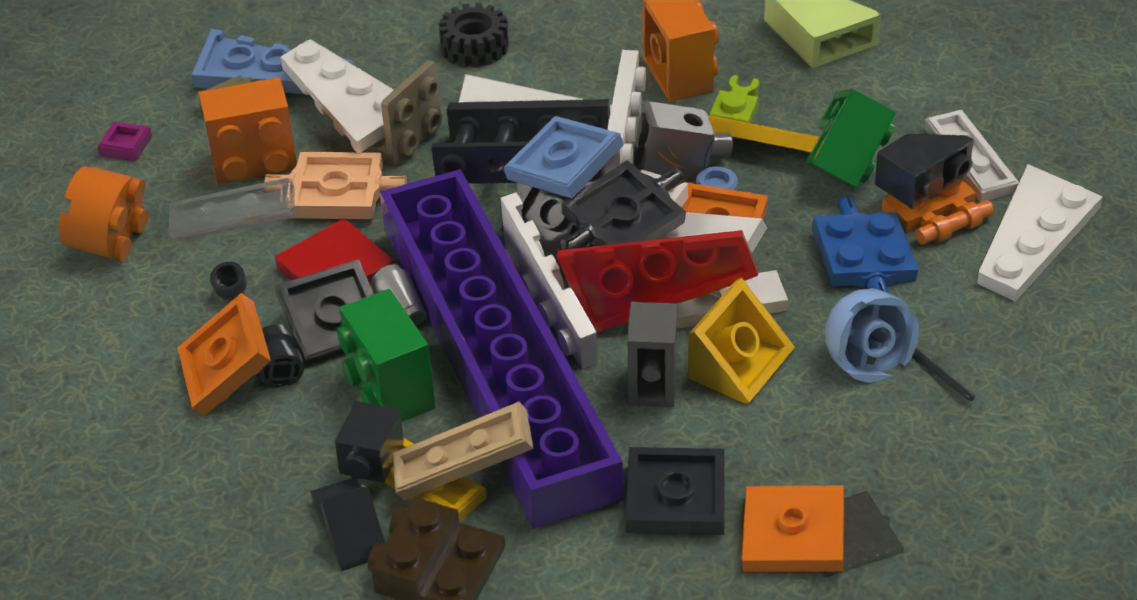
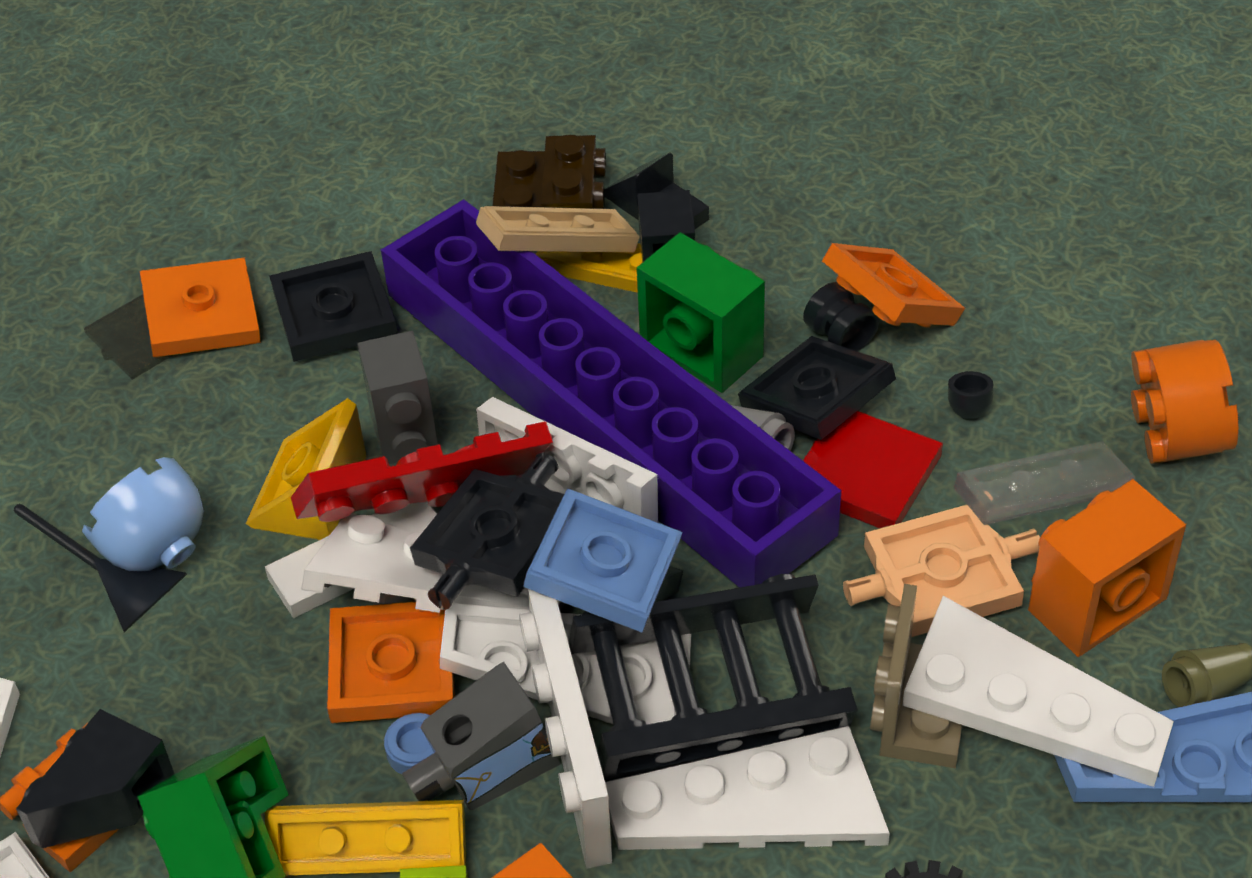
camera: 160 degrees right, 5 degrees up
(863, 248) = (179, 681): blue plate -> none

